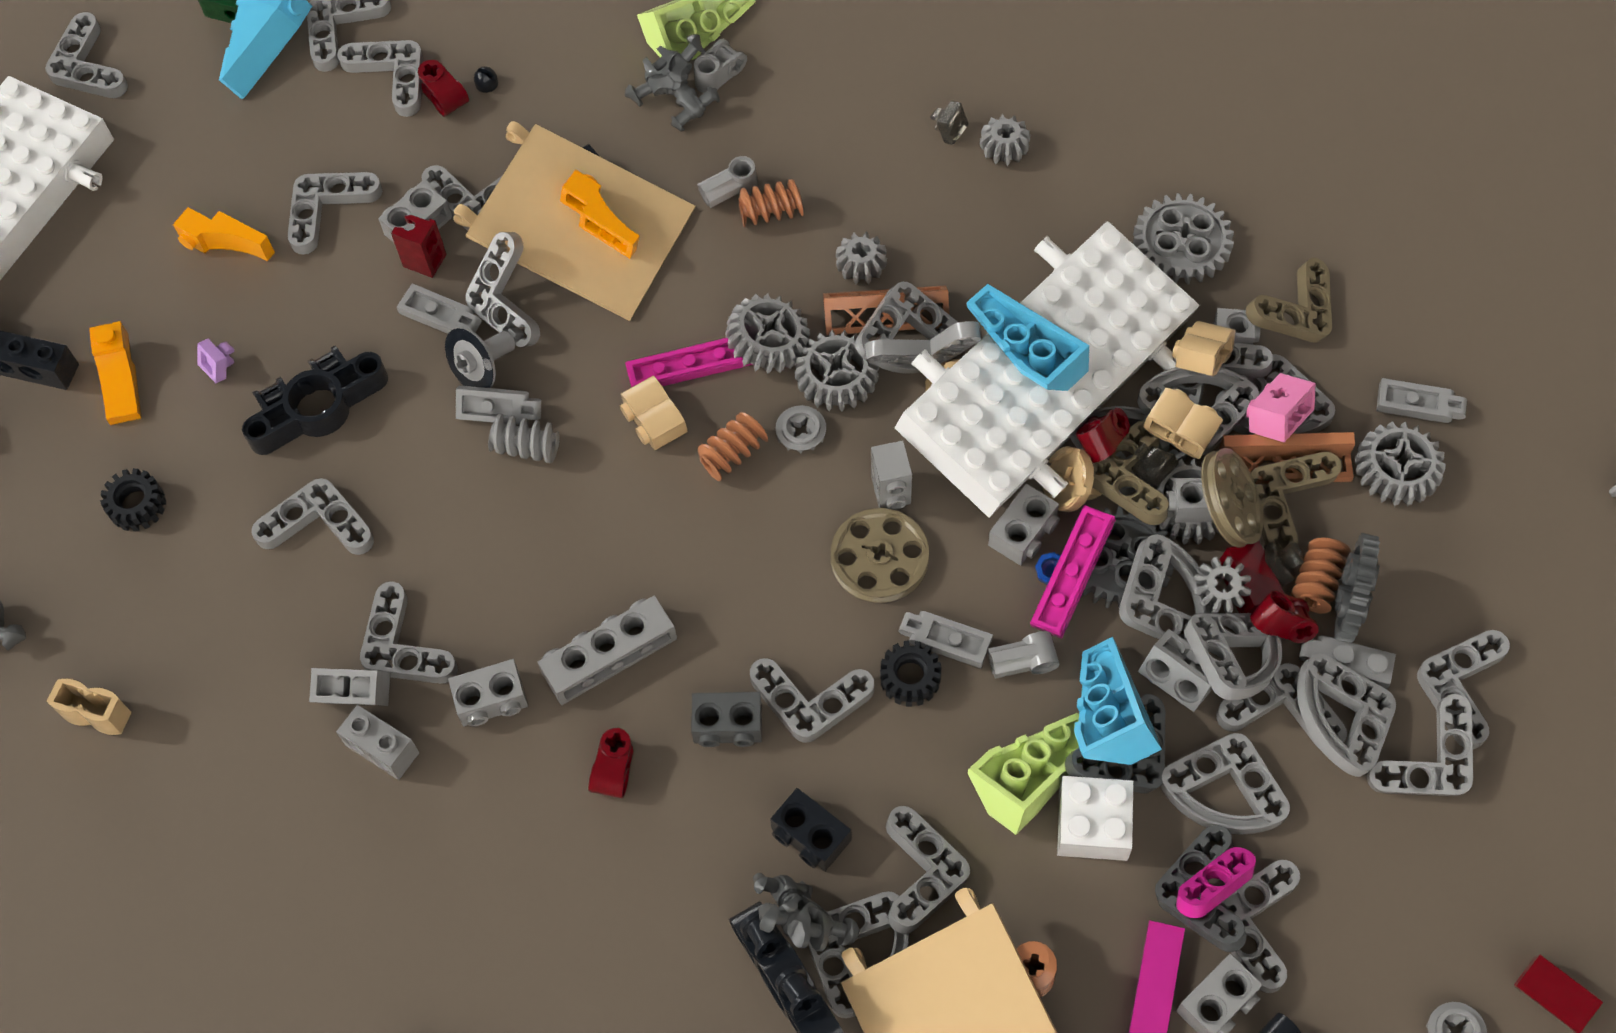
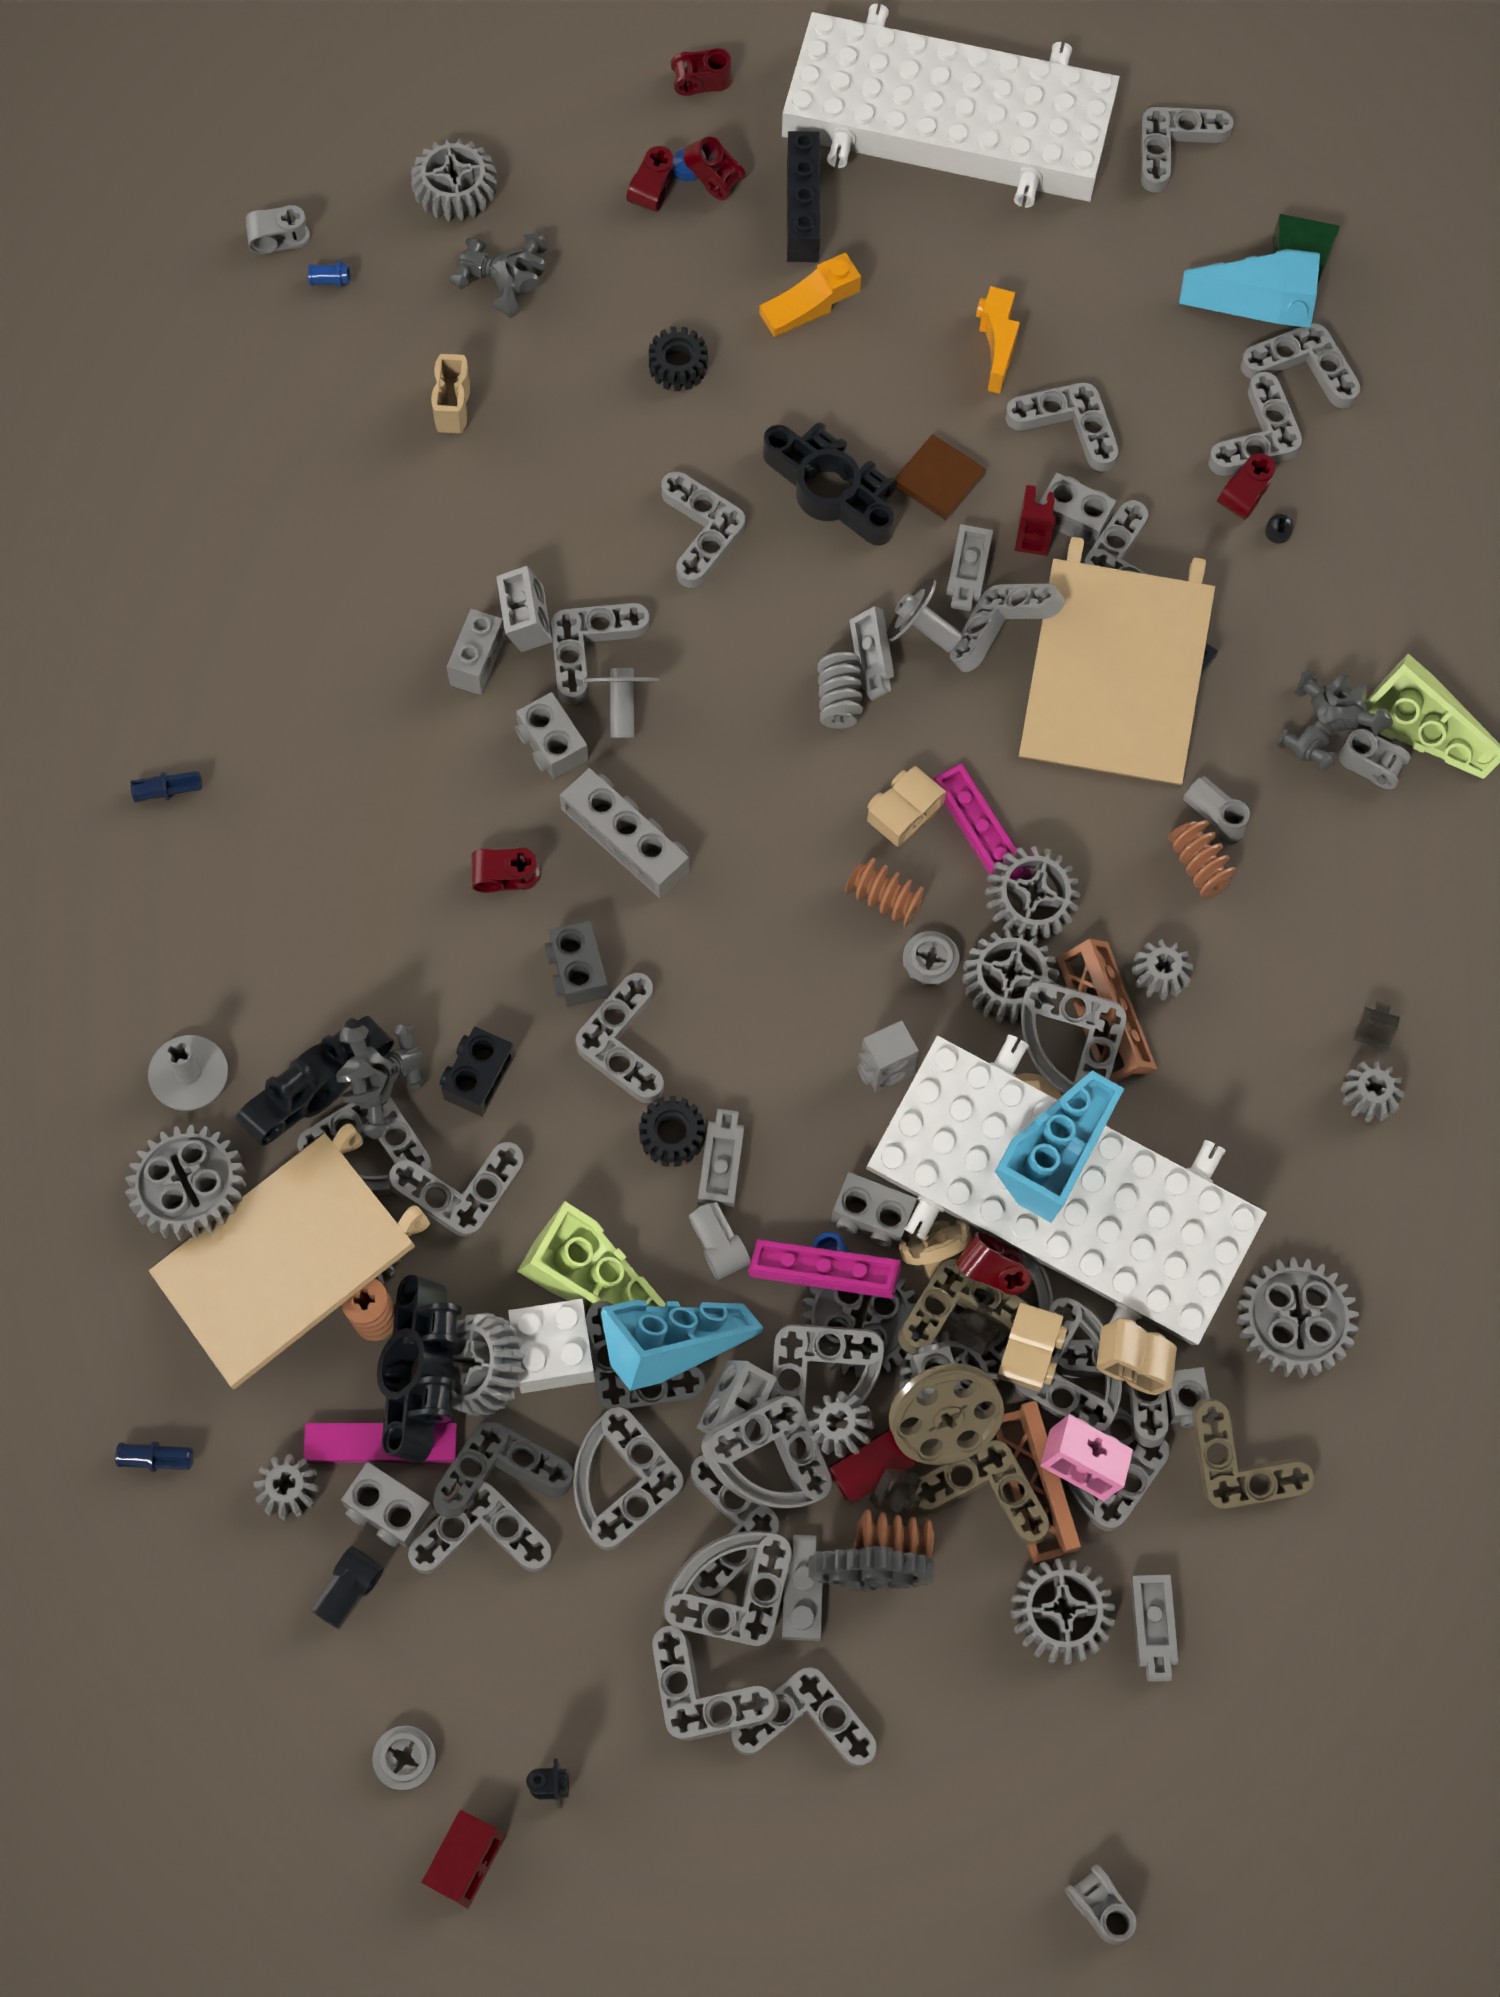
camera: 70 degrees right, 5 degrees up
(214, 359) = (853, 379): lavender tile -> none
(340, 315) = (939, 477): none -> reddish brown tile
(460, 615) = (621, 699): none -> light grey piece
(583, 195) = (1139, 662): light orange slope -> none
(881, 569) = (787, 1080): dark tan wedge -> none
(942, 347) = (1039, 1039): light grey beam -> none
(1128, 895) = (494, 1345): none -> light grey gear
(1137, 928) = (424, 1328): none -> black piece
(1213, 895) = (519, 1475): dark pink beam -> none
(1284, 617) = (827, 1510): dark red piece -> none
(1503, 898) = (549, 1783): none -> black hinge

